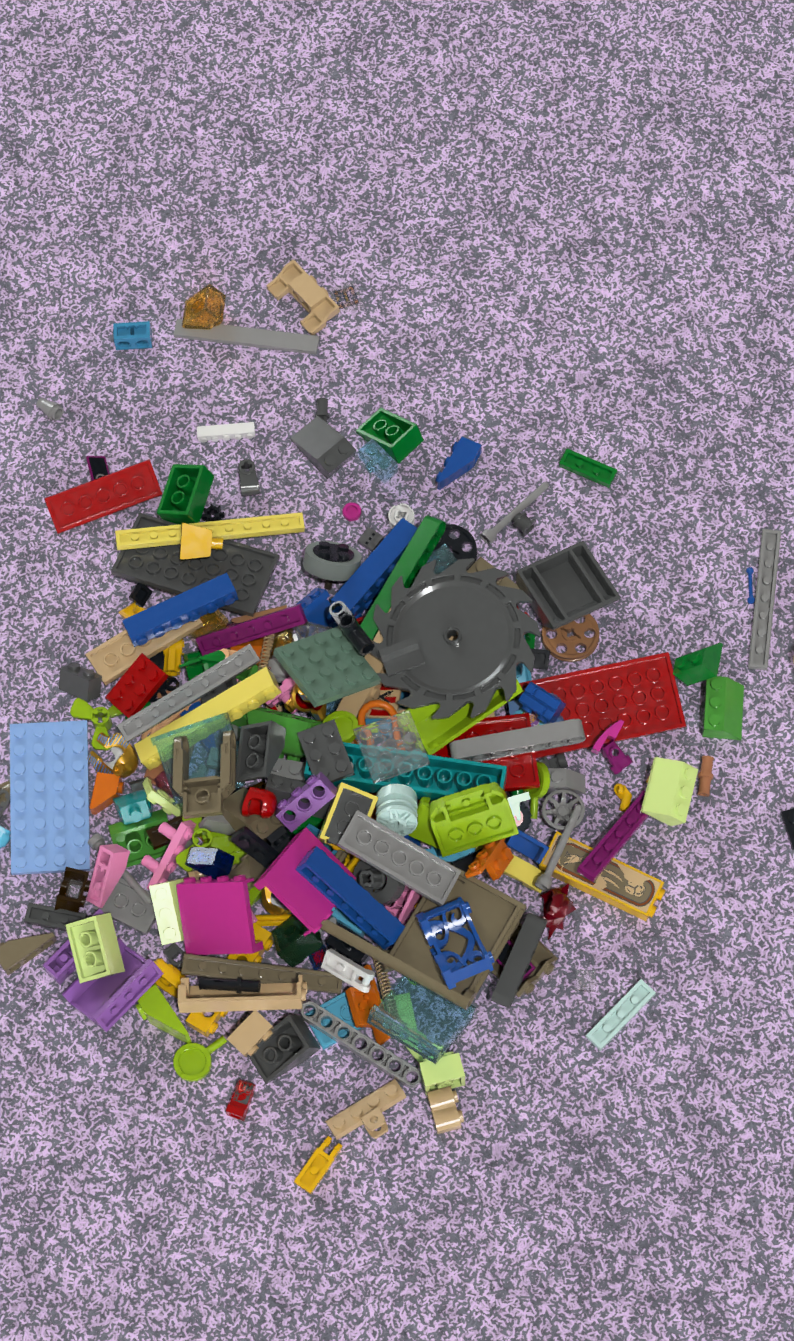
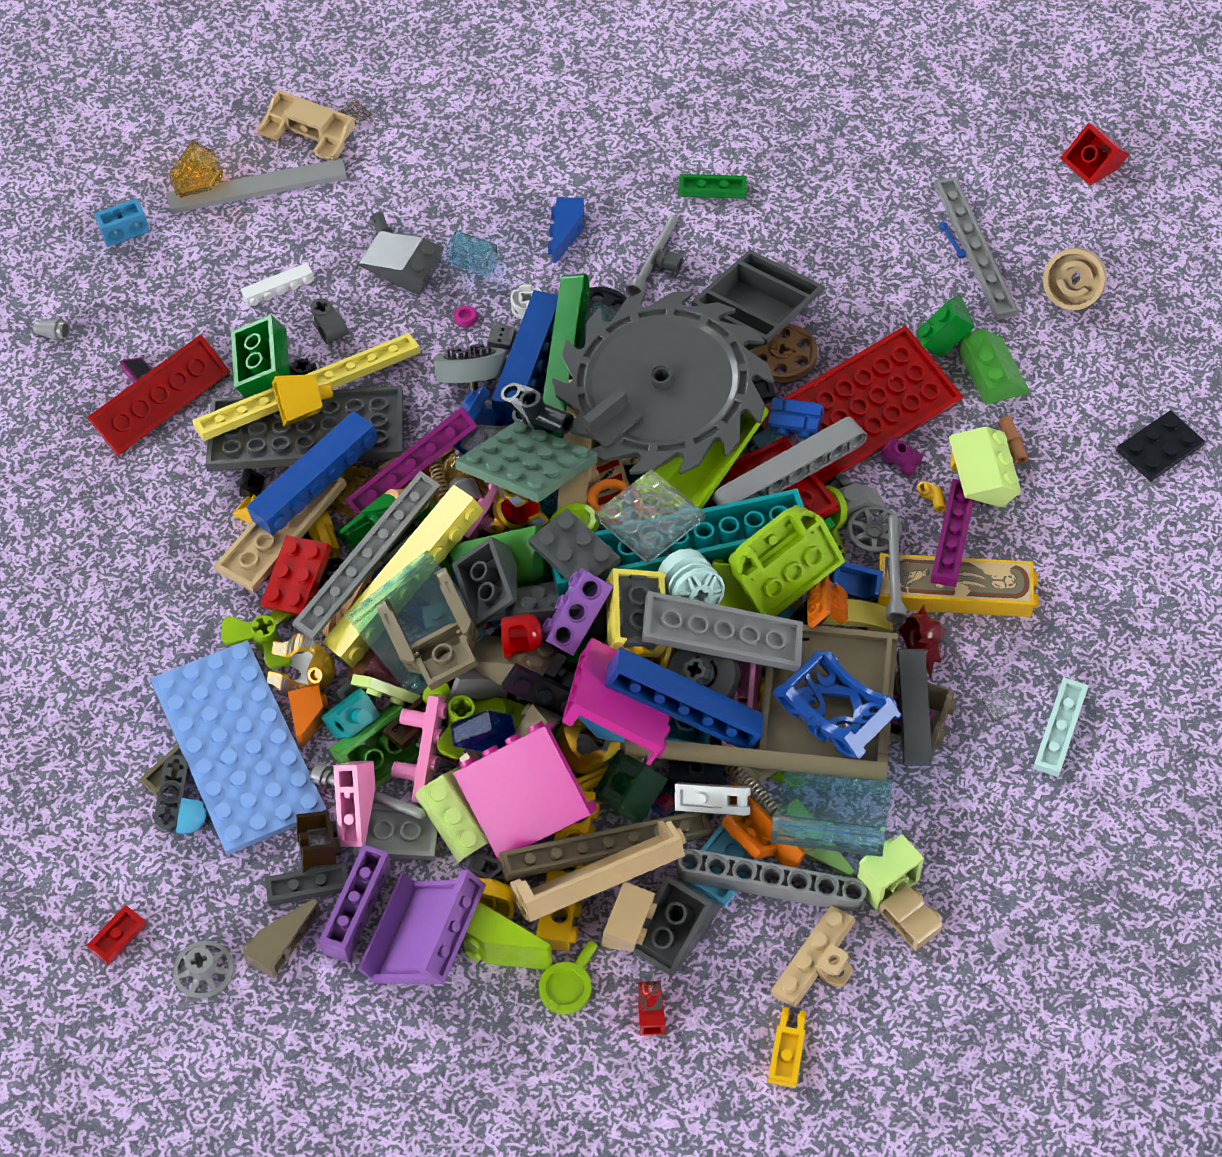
camera: 25 degrees left, 10 degrees down
(80, 682) = (221, 598): dark grey brick -> none
(95, 947) = (380, 890): yellowish green slope -> none
(239, 984) = (573, 868): black pin -> none
(392, 433) = (480, 219): green slope -> none
(611, 733) = (886, 431): dark pink slope -> none

